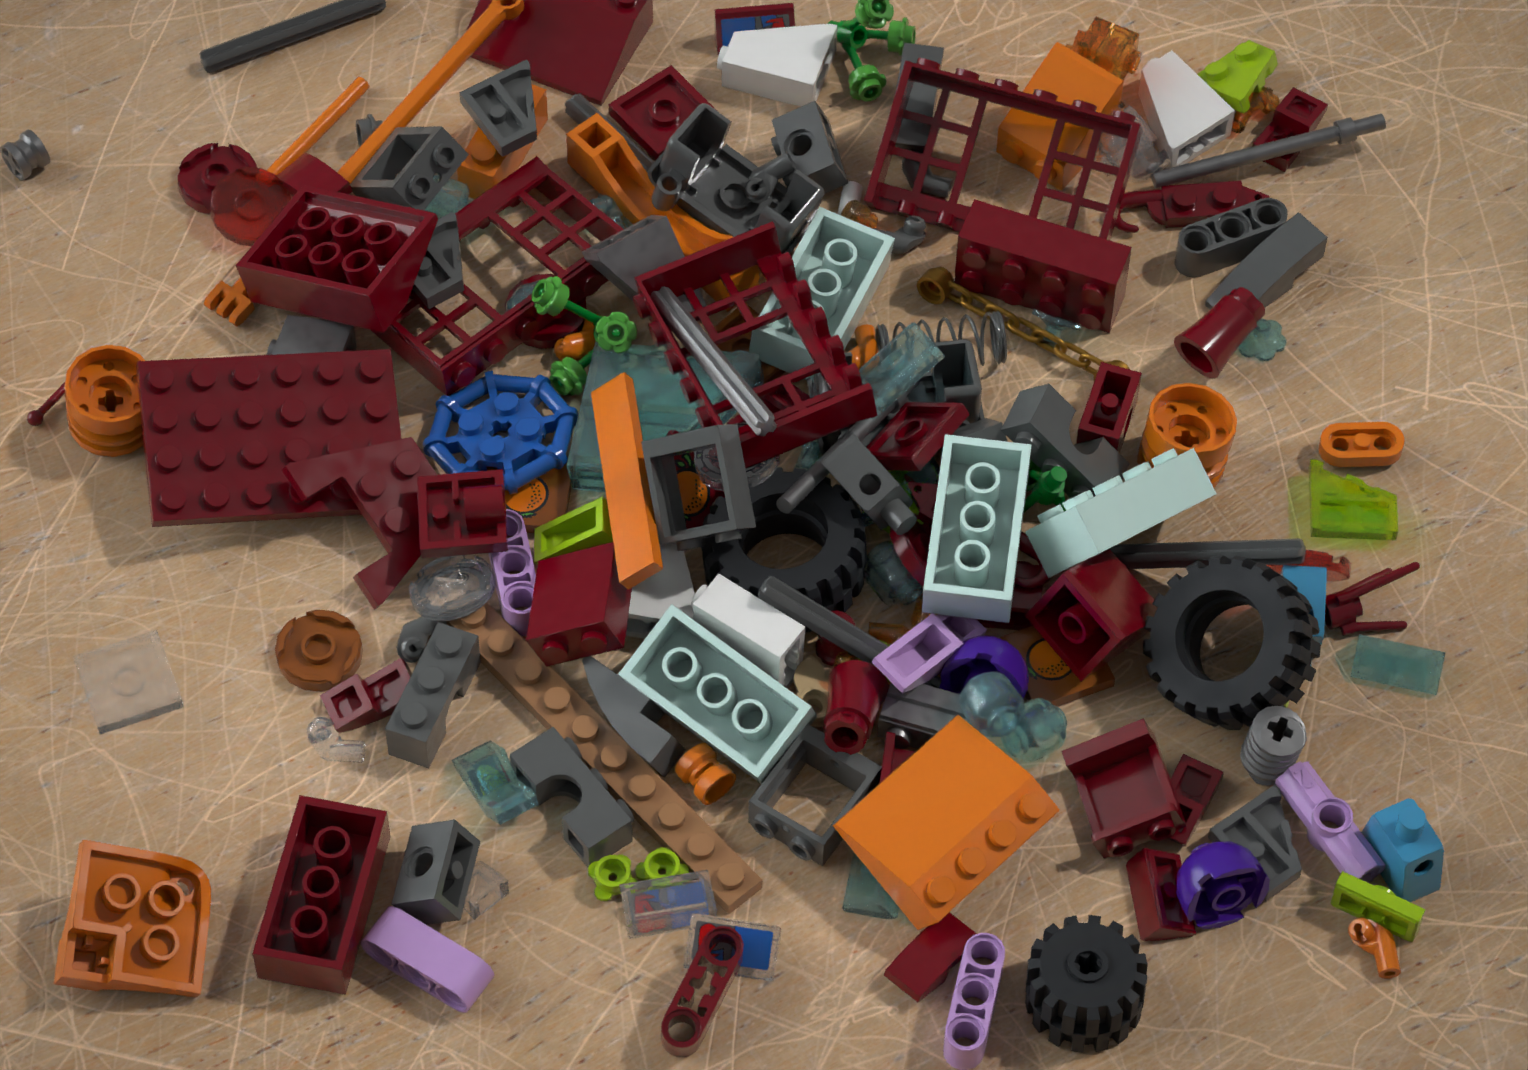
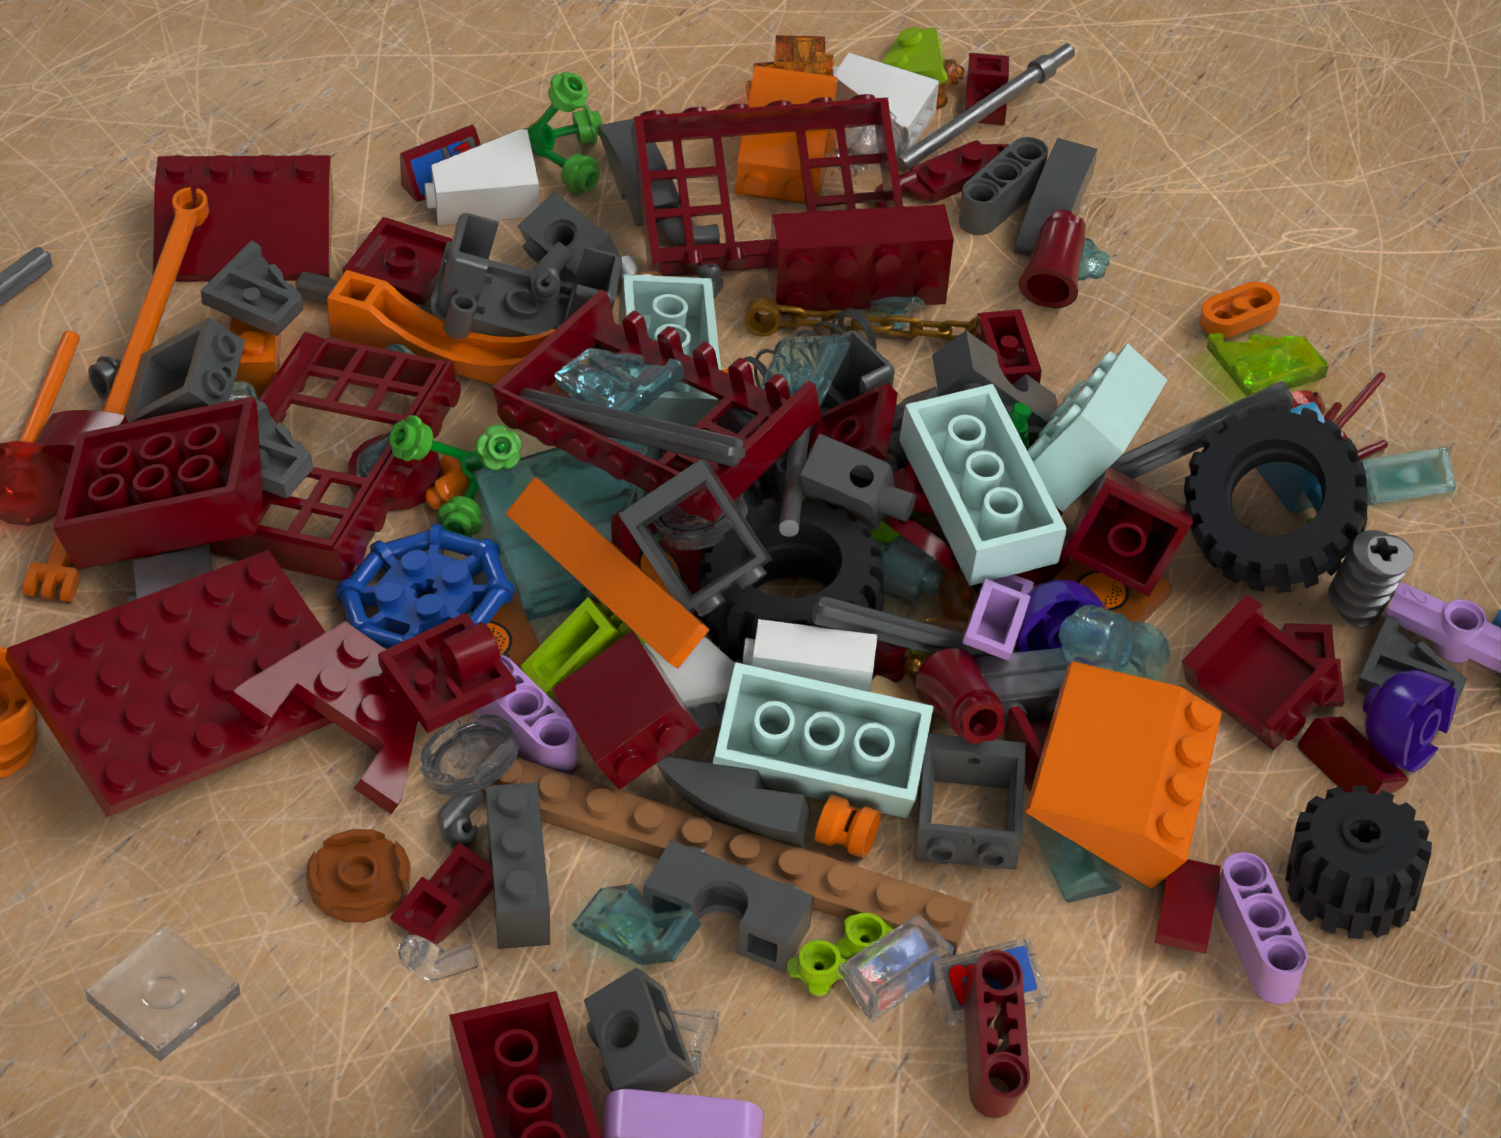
camera: 30 degrees left, 10 degrees down
(638, 251) = (466, 378): flat silver slope -> none
(737, 313) = (617, 379): none -> clear light blue wing
(1186, 419) = (1084, 333): orange wheel -> none

